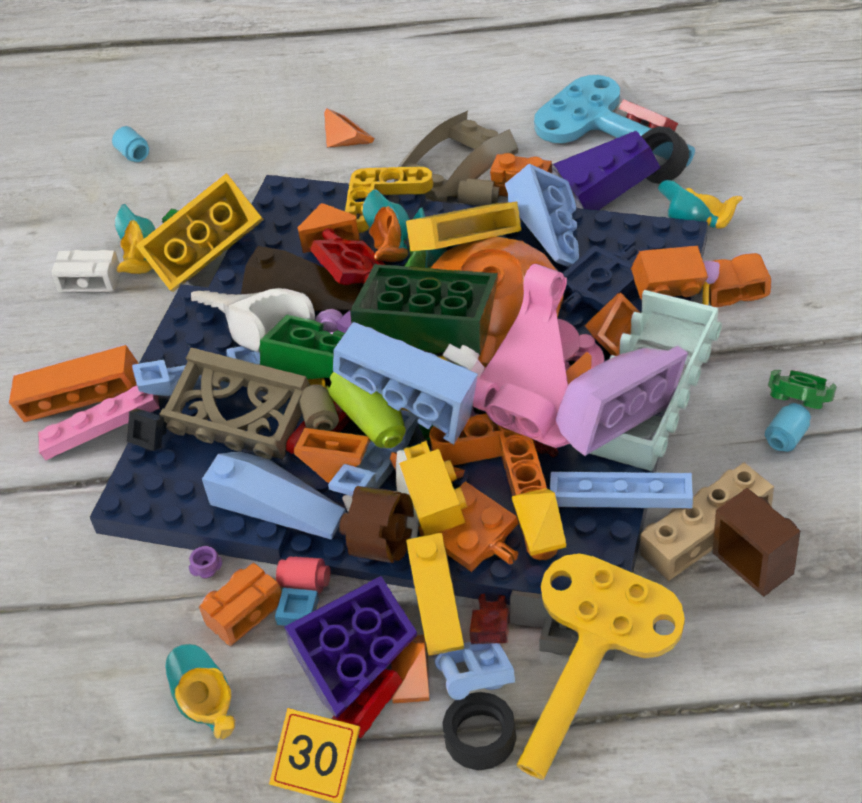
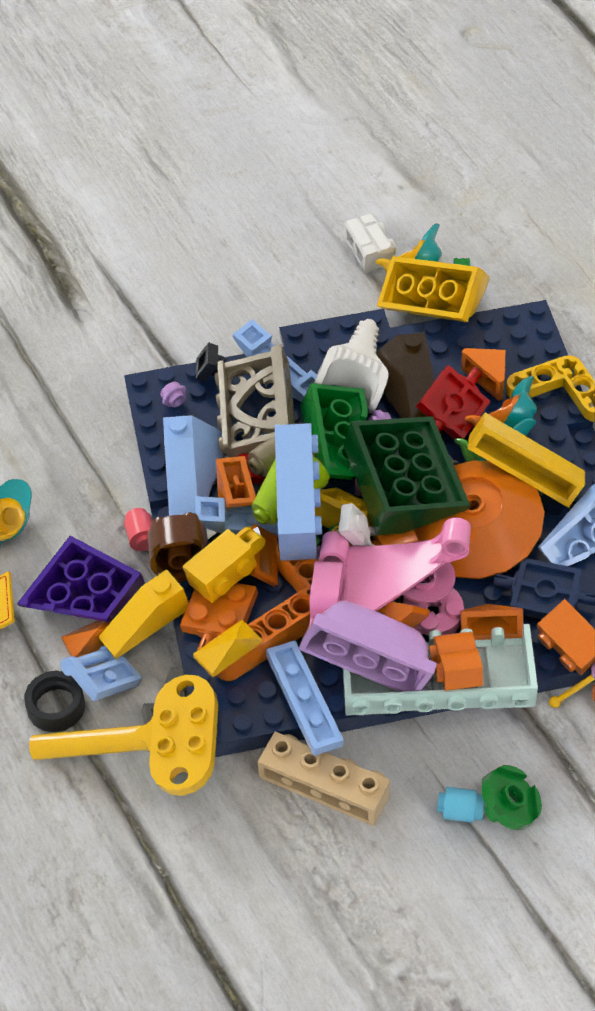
camera: 60 degrees right, 5 degrees up
(73, 383) = (241, 296): orange brick -> none
(93, 422) = (209, 329): bright pink plate -> none
(130, 144) = (533, 191): medium azure brick -> none
(163, 473) = (173, 394): none -> lavender plate
(202, 556) = (125, 465): medium lavender plate -> none
(240, 603) = (96, 504): orange brick -> none
(295, 605) = (110, 539): dark azure plate -> none
(371, 701) = (37, 621): red plate -> none
(490, 622) = (151, 668): clear red plate -> none
(664, 338) = (457, 661): none -> orange brick
(756, 541) = (306, 817): reddish brown piece -> none

